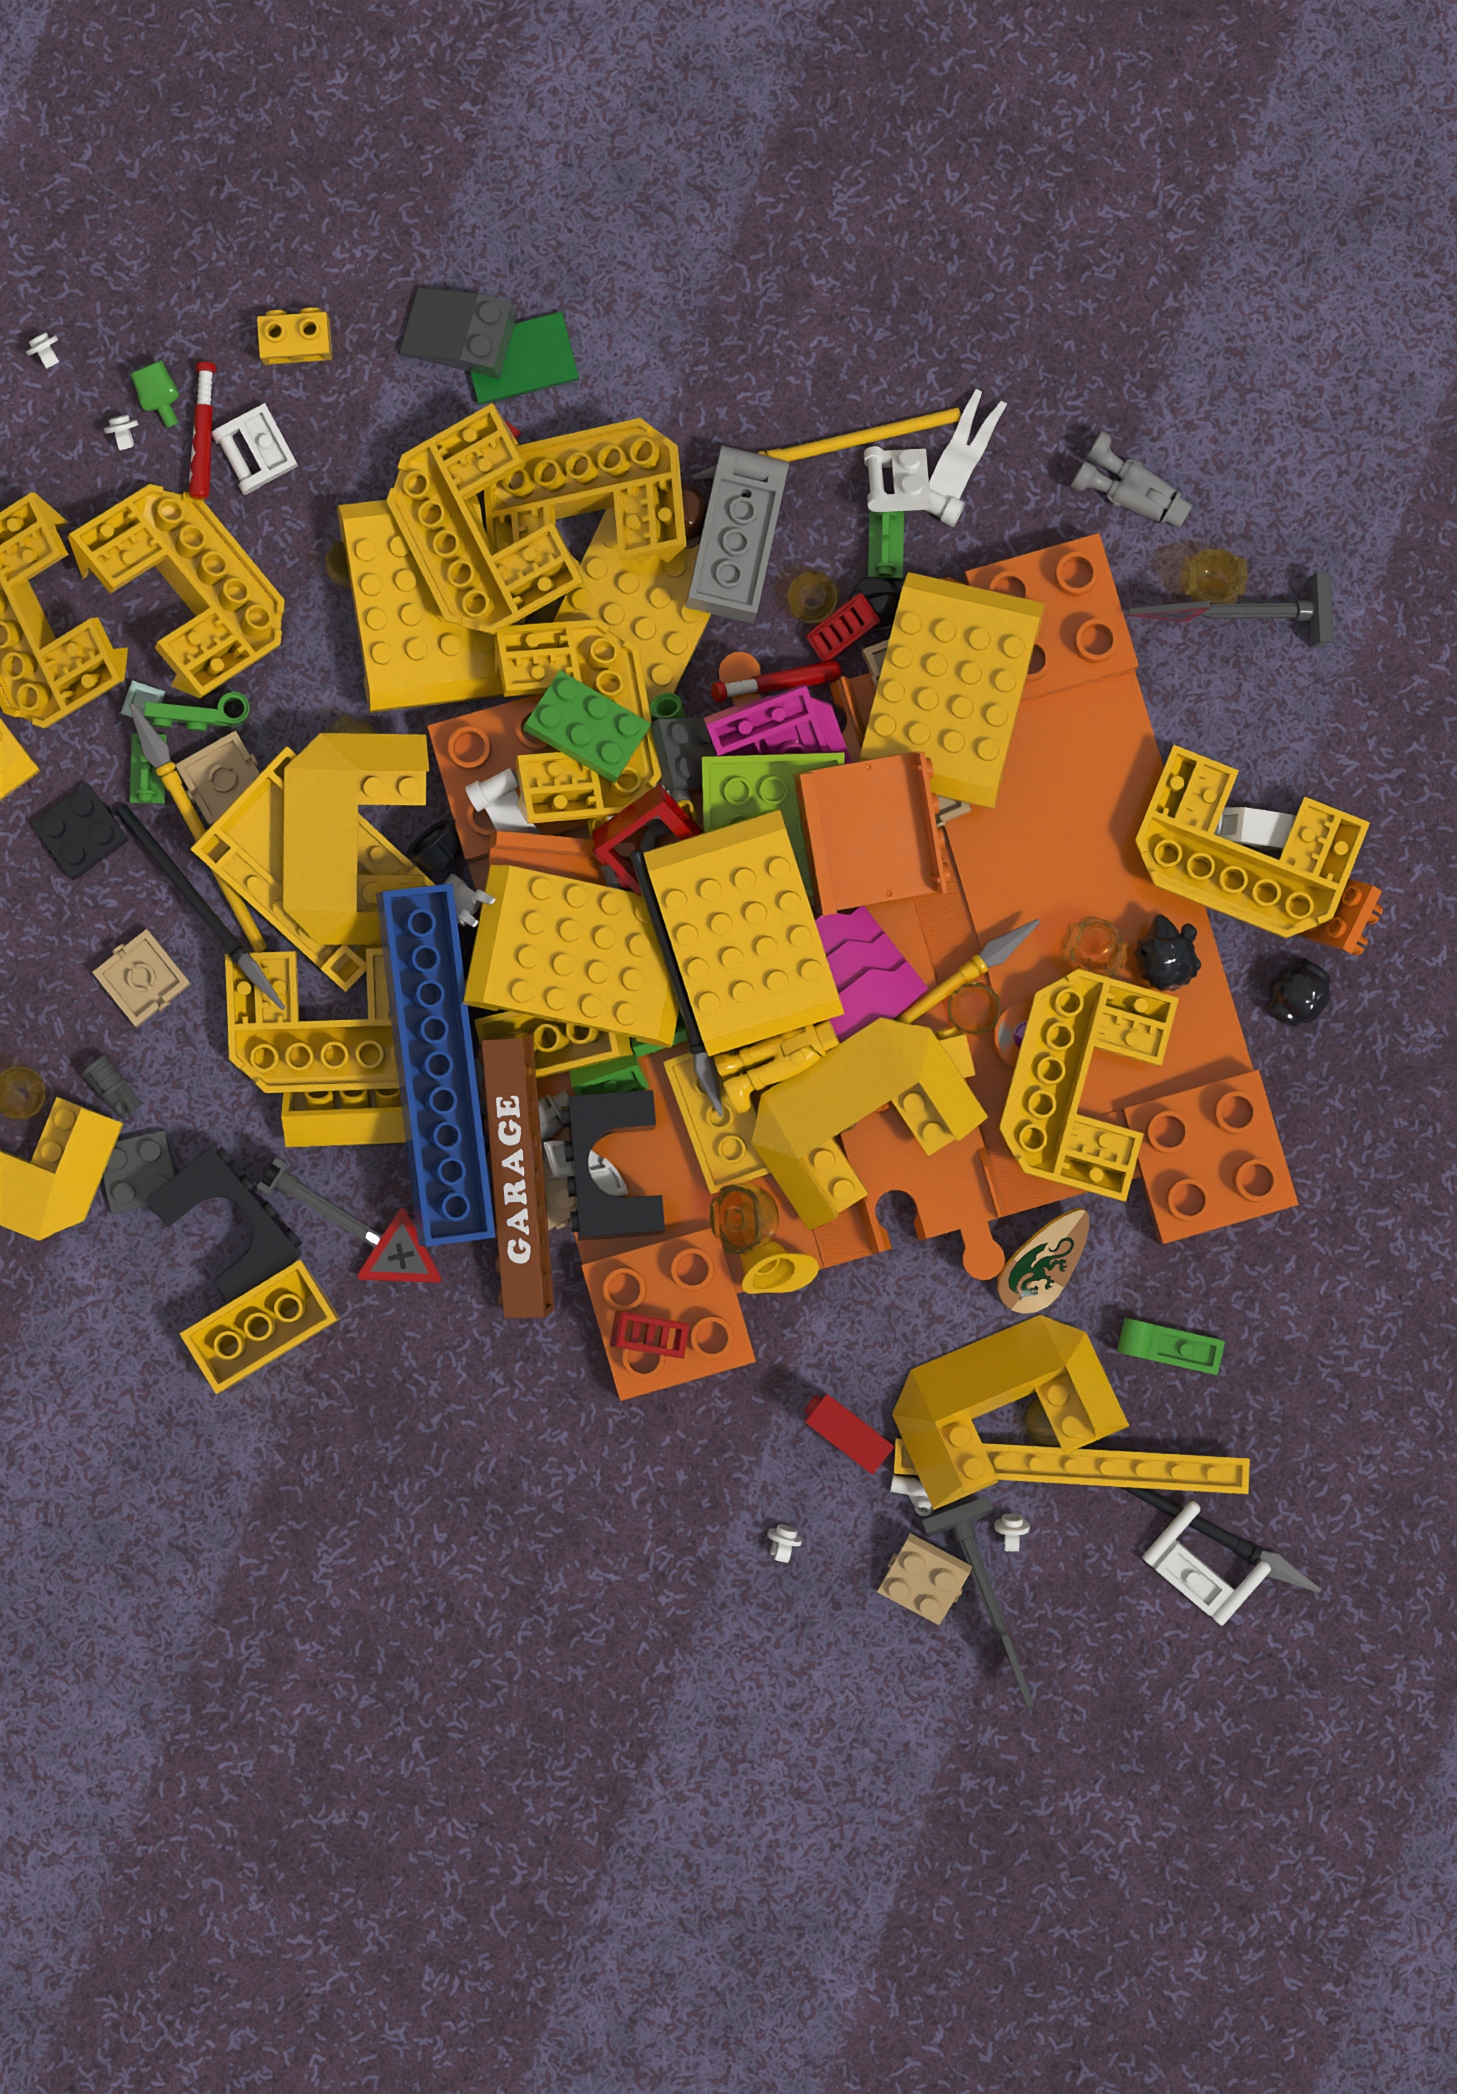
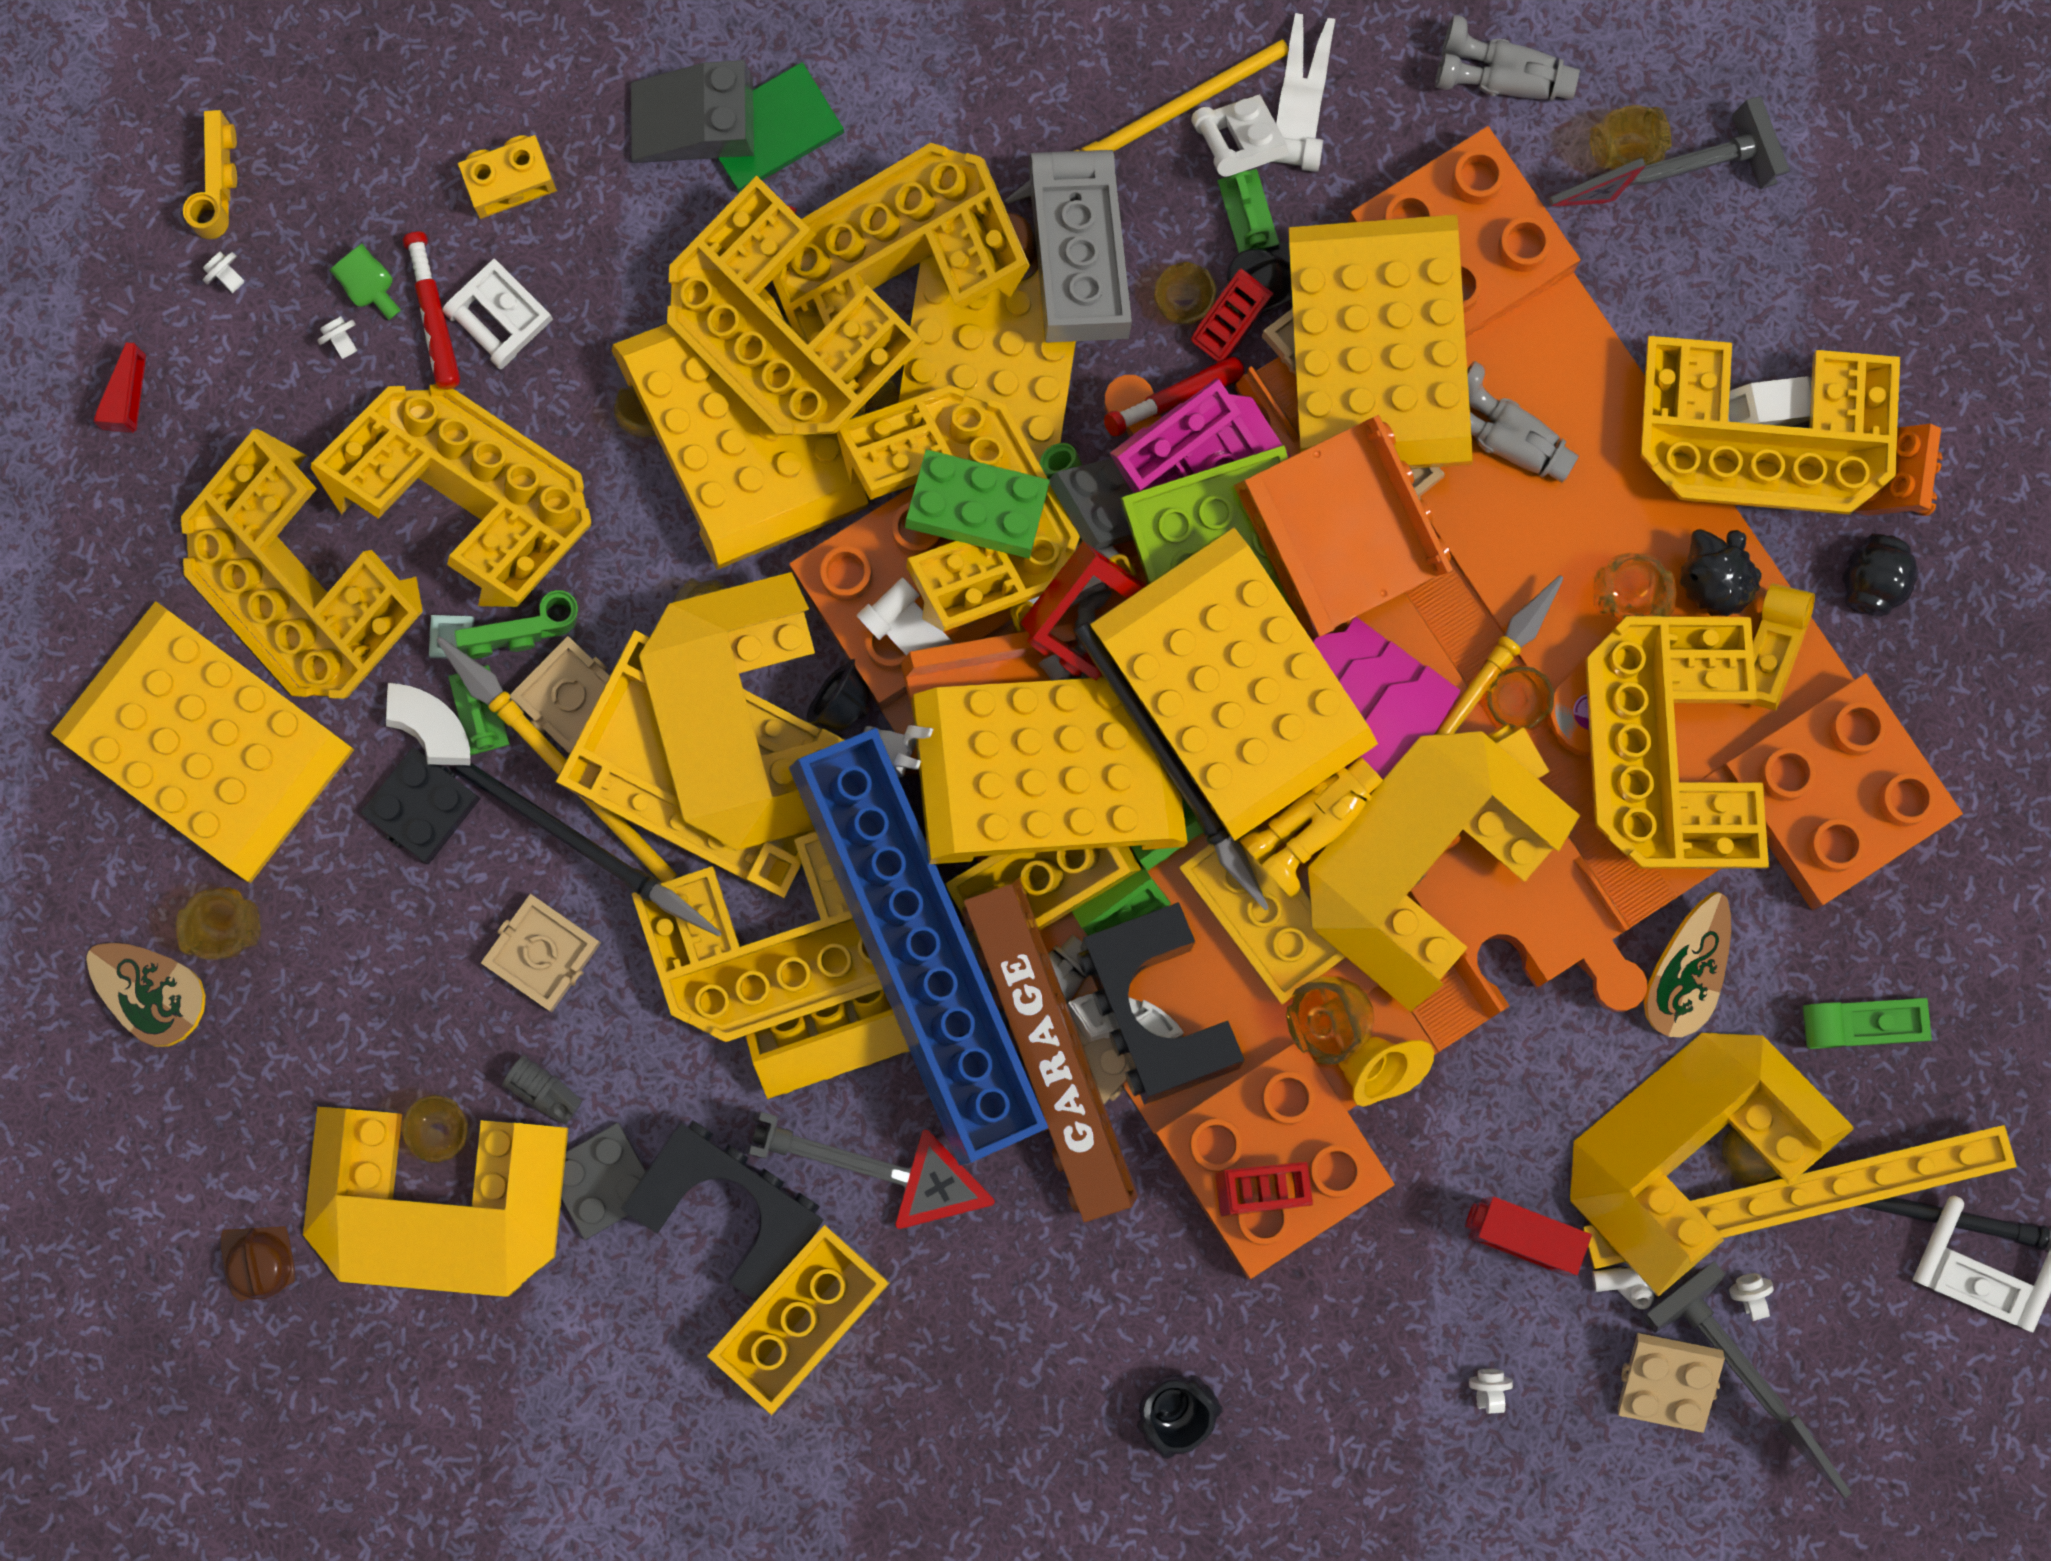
camera: 20 degrees left, 5 degrees down
(62, 268) = (219, 178): none -> yellow plate
(106, 767) = (429, 723): none -> white tile
(532, 1488) = (1178, 1414): none -> black hair
(1040, 791) = (1516, 432): none -> light grey piece
(1198, 1023) = (1778, 640): none -> yellow plate

